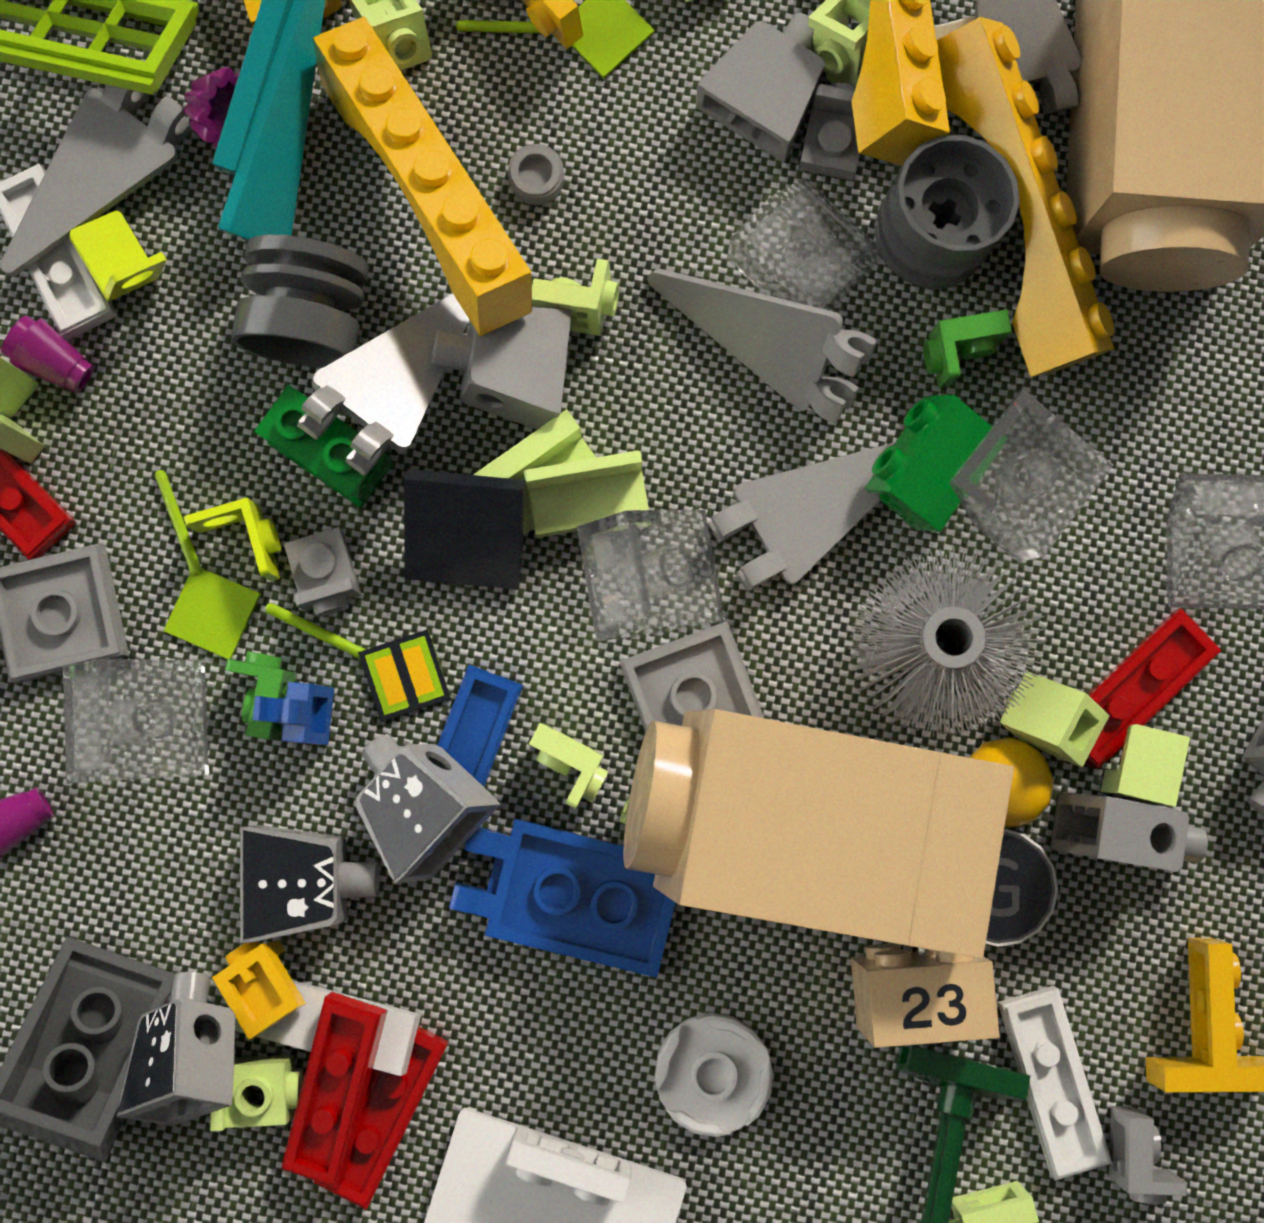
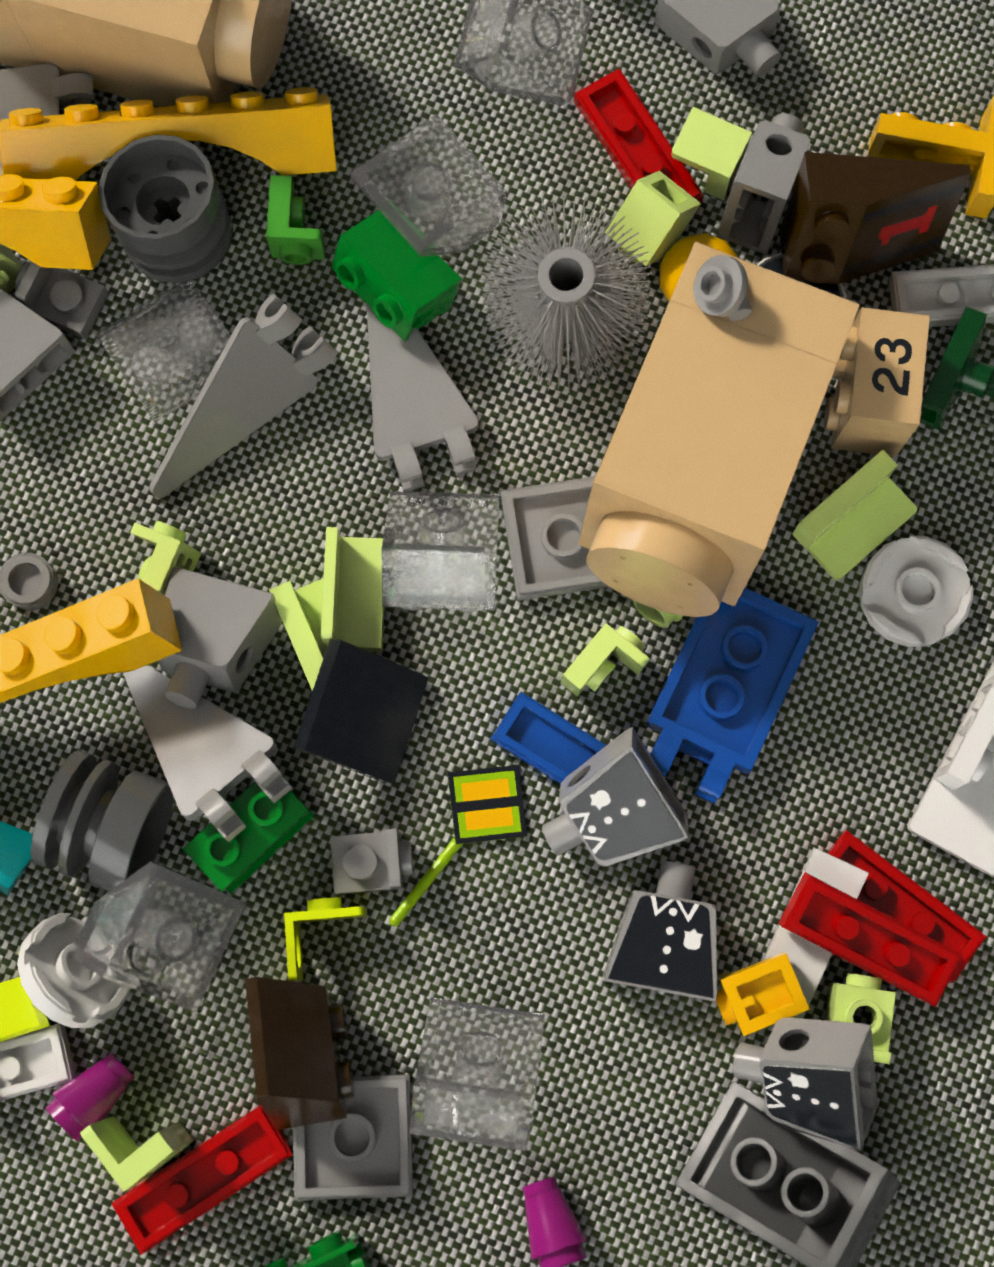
camera: 75 degrees left, 5 degrees down
(113, 539) = (297, 1052): none -> dark brown slope
(155, 310) = (60, 984): none -> white tile
(195, 380) = (159, 935): none -> clear slope
(210, 607) = (379, 983): lime piece -> none
(271, 683) = (489, 939): bright green bracket -> none
(301, 713) = (504, 906): blue plate -> none
(777, 998) = (855, 517): none -> yellowish green panel
(962, 805) = (722, 288): none -> light grey plate
(1107, 947) = (865, 214): none -> dark brown slope

